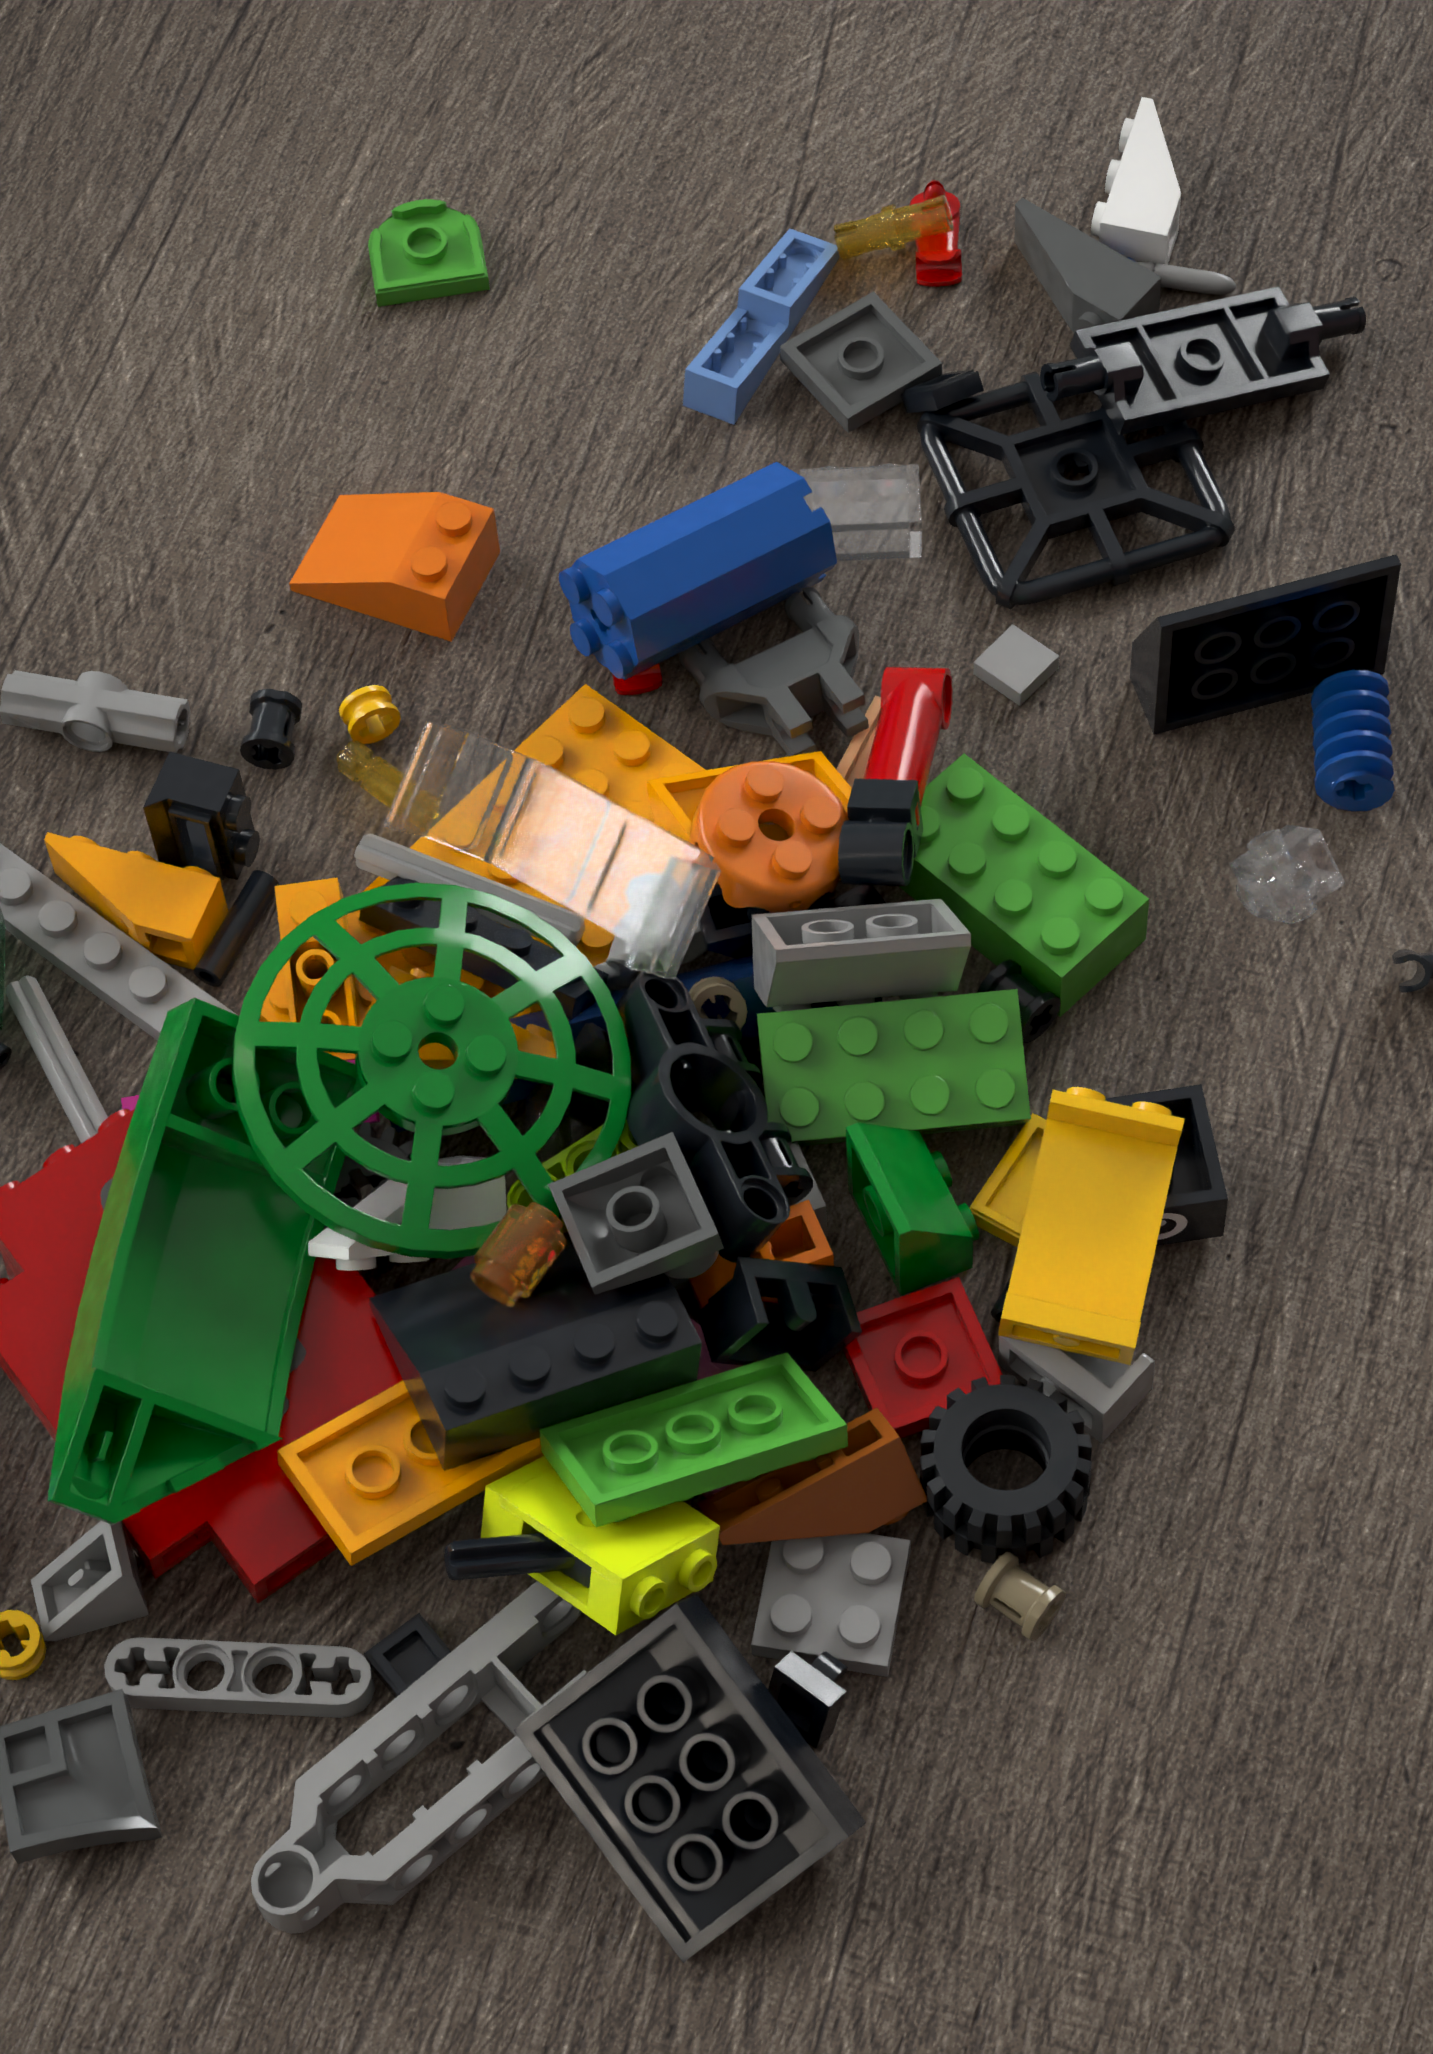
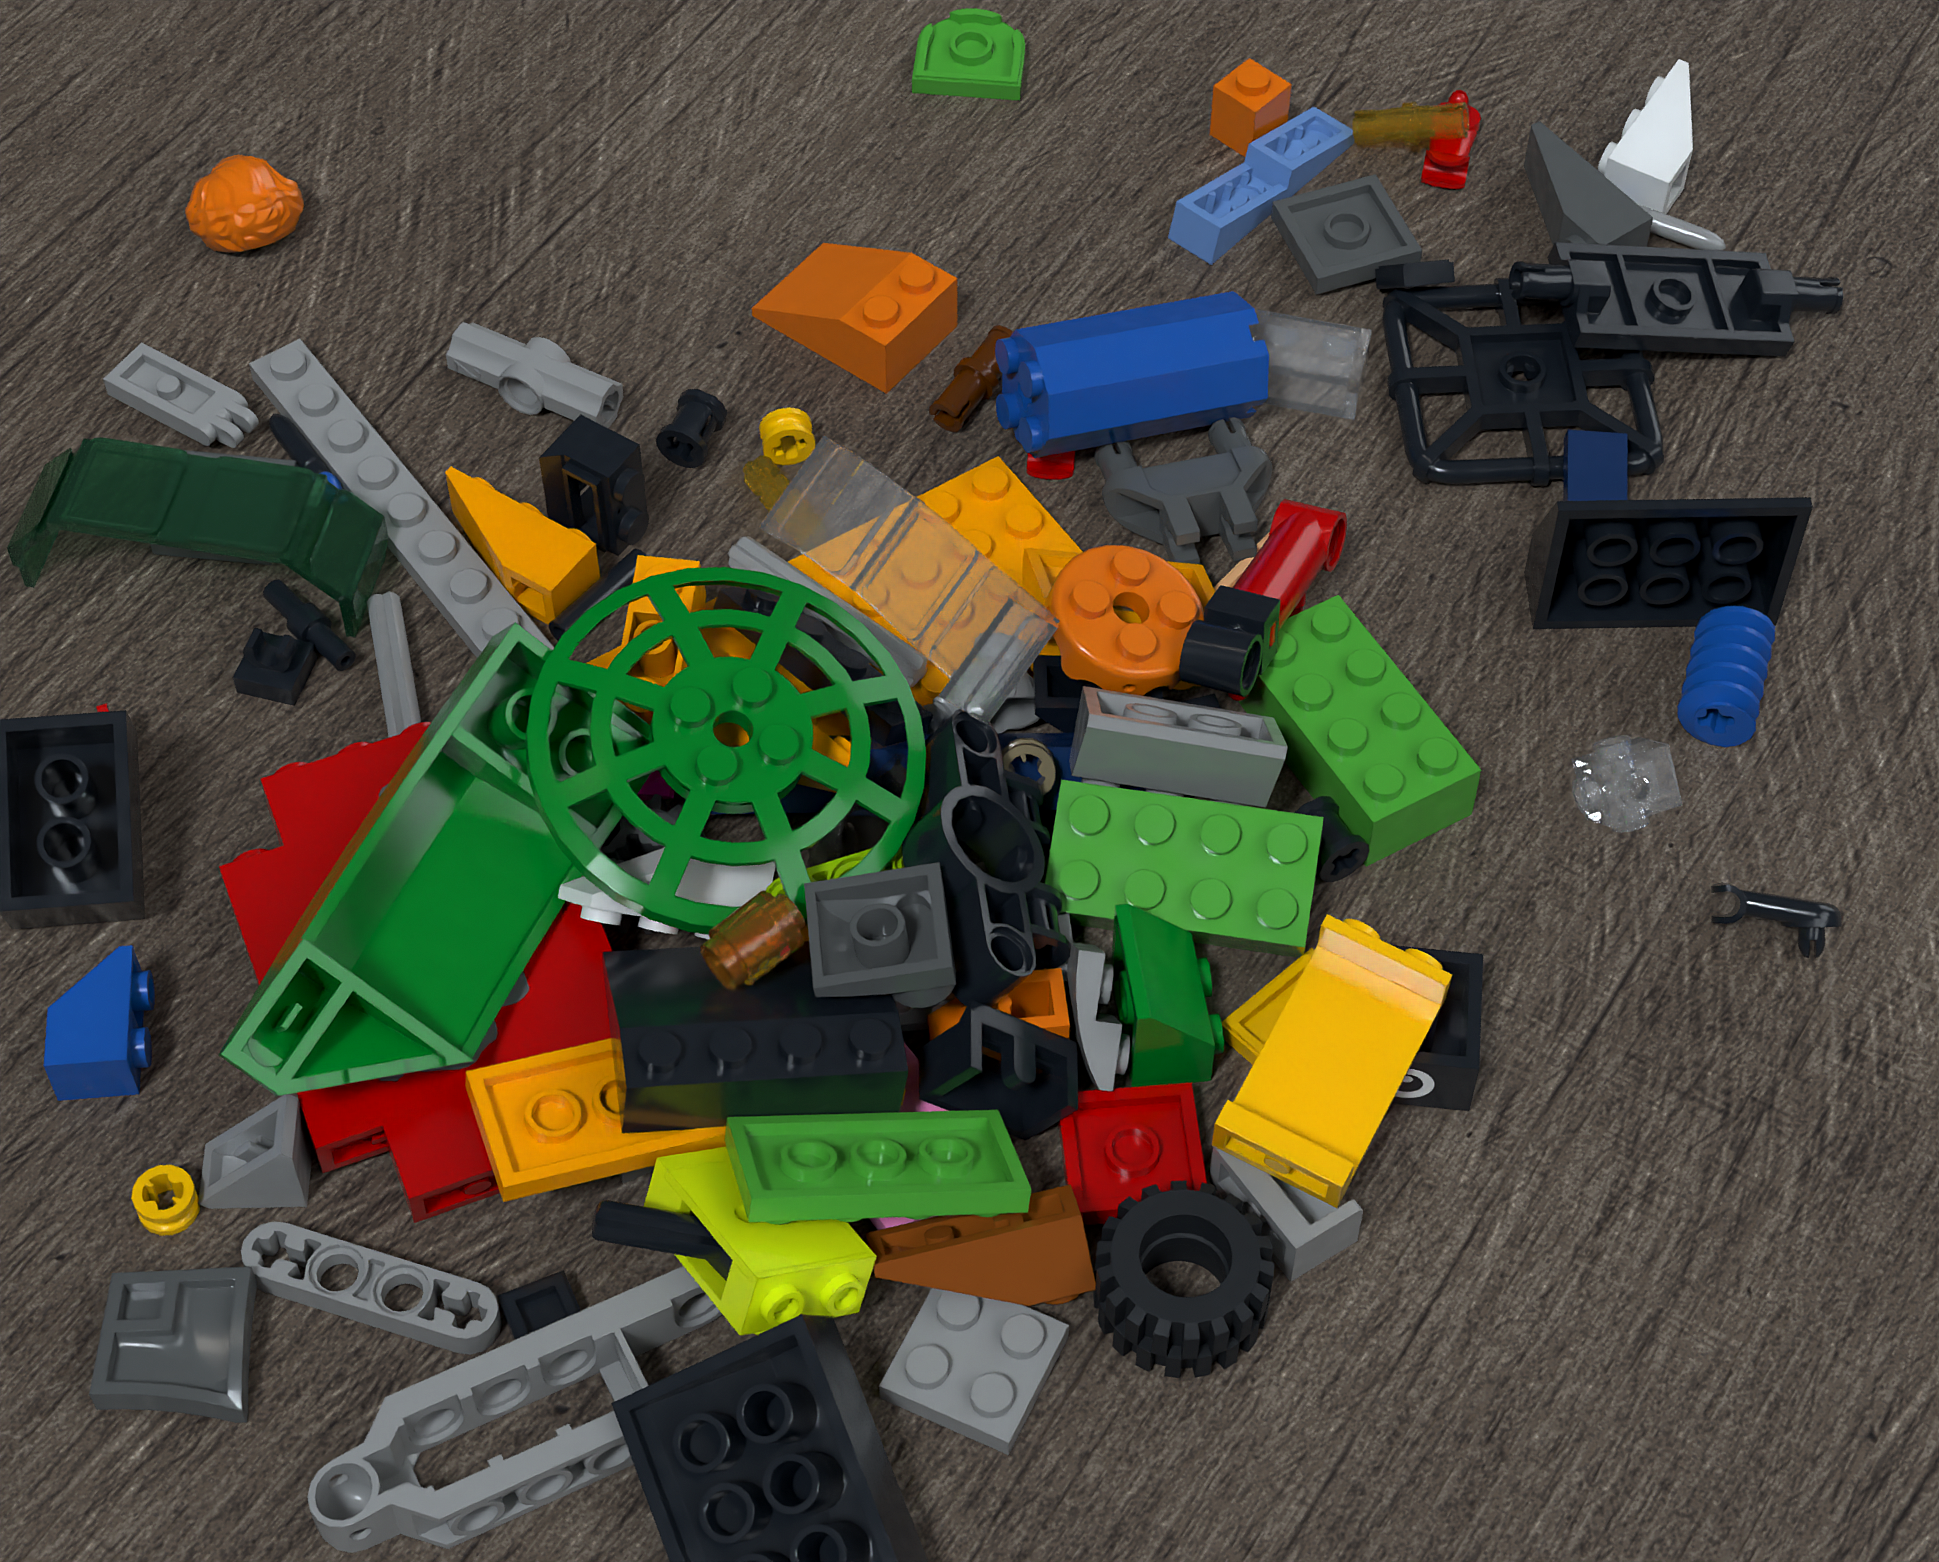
camera: 10 degrees right, 5 degrees down
(537, 607) = (973, 381): none -> reddish brown pin
(727, 247) = (1248, 105): none -> orange brick
(809, 1694) = (920, 1449): black tile -> none
(860, 1254) = (1097, 1035): none -> light grey slope
(1016, 665) = (1416, 534): light grey tile -> none
(1019, 1596) = (1162, 1408): dark tan bush -> none
(1174, 565) = (1594, 466): none -> dark blue tile

